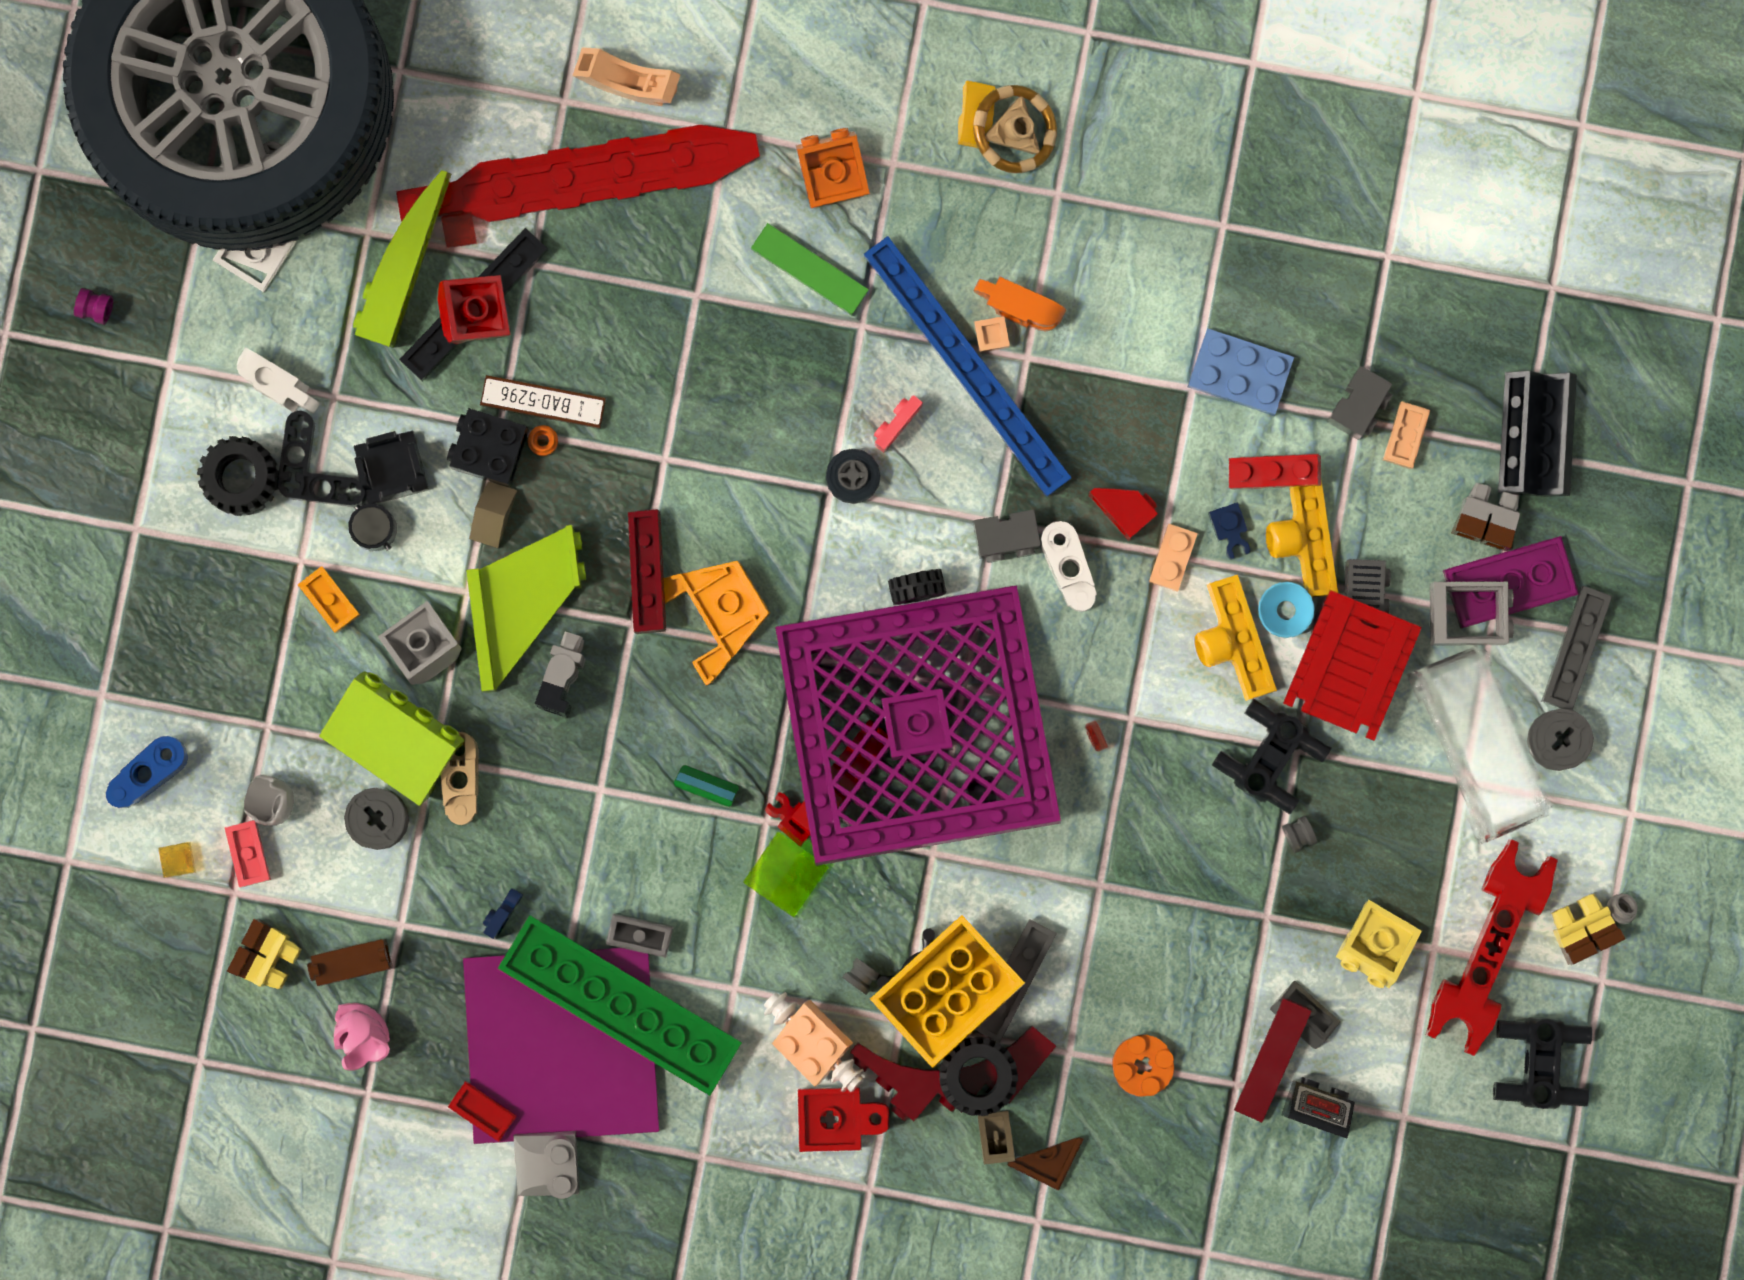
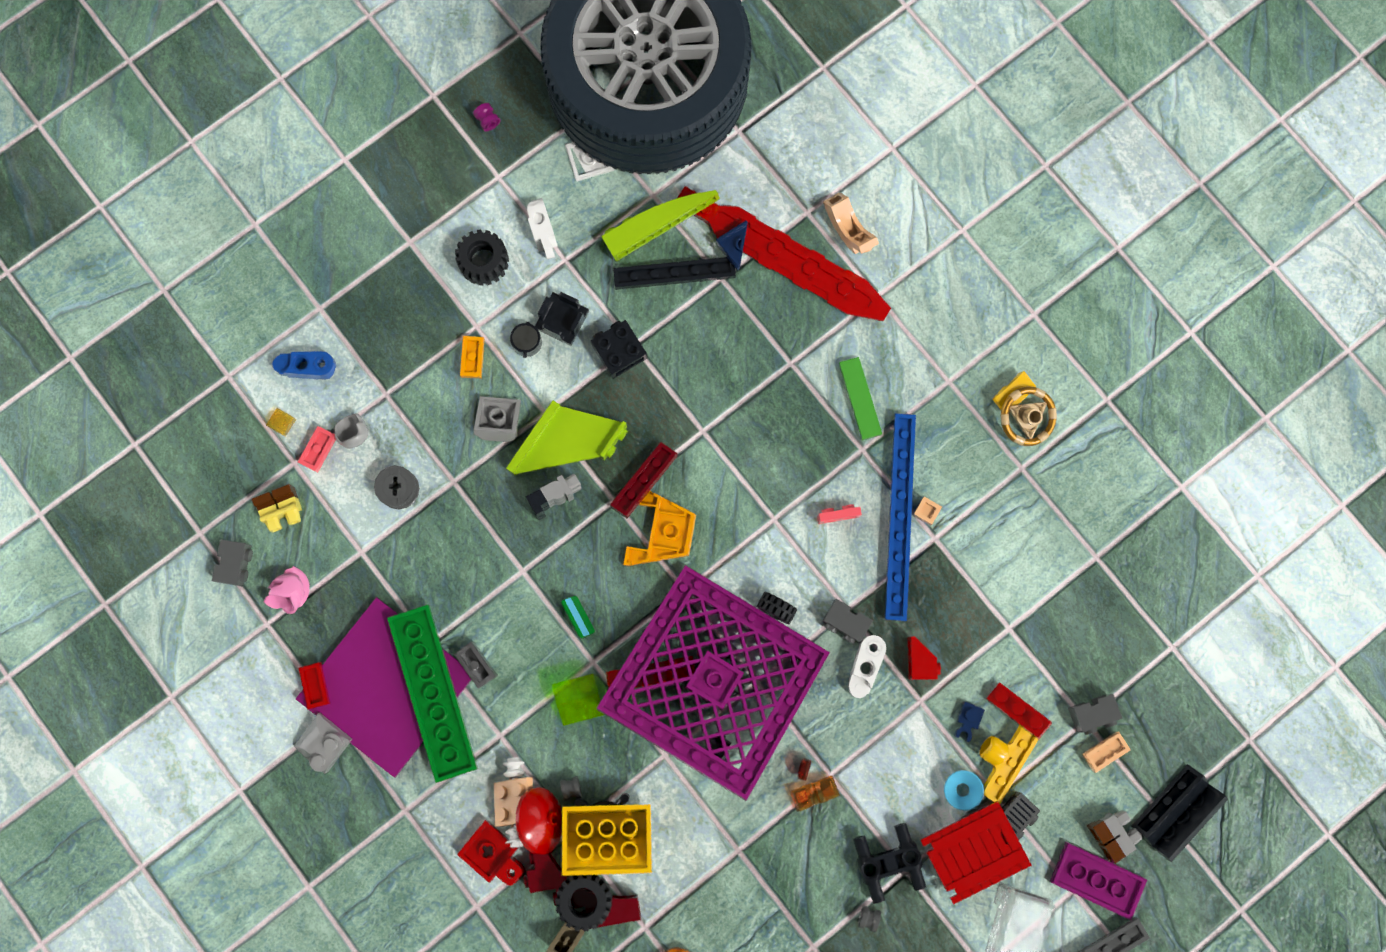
camera: 40 degrees right, 5 degrees down
(270, 1059) = (233, 563): none -> dark grey brick
(308, 480) = (514, 288): black beam -> none
(350, 962) = (318, 549): reddish brown brick -> none
(391, 737) = (440, 452): lime panel -> none
(459, 229) = (699, 230): clear red tile -> none
(462, 803) = (444, 515): tan piece -> none
(472, 309) = (671, 272): red slope -> none
(492, 514) = (591, 384): dark tan slope -> none
(497, 919) = (410, 592): dark blue plate -> none
(512, 214) = (733, 244): none -> dark blue tile
(539, 431) = (649, 363): orange plate -> none
(543, 402) = (666, 350): white tile -> none
(787, 826) = (601, 673): red plate -> none
(832, 167) = (916, 357): orange plate -> none
(851, 465) = (797, 516): black wheel -> none
(858, 1036) = (539, 821): none -> red dish
(1021, 304) = (956, 508): orange piece -> none
(1025, 962) = (662, 858): dark grey plate -> none
(1129, 752) = (814, 793): none -> clear orange slope
(1173, 557) = (925, 709): light nougat plate -> none
(1235, 639) = (922, 782): yellow plate -> none
(1240, 372) = (1043, 642): medium blue plate -> none
(1438, 613) = (1046, 864): light grey window -> none

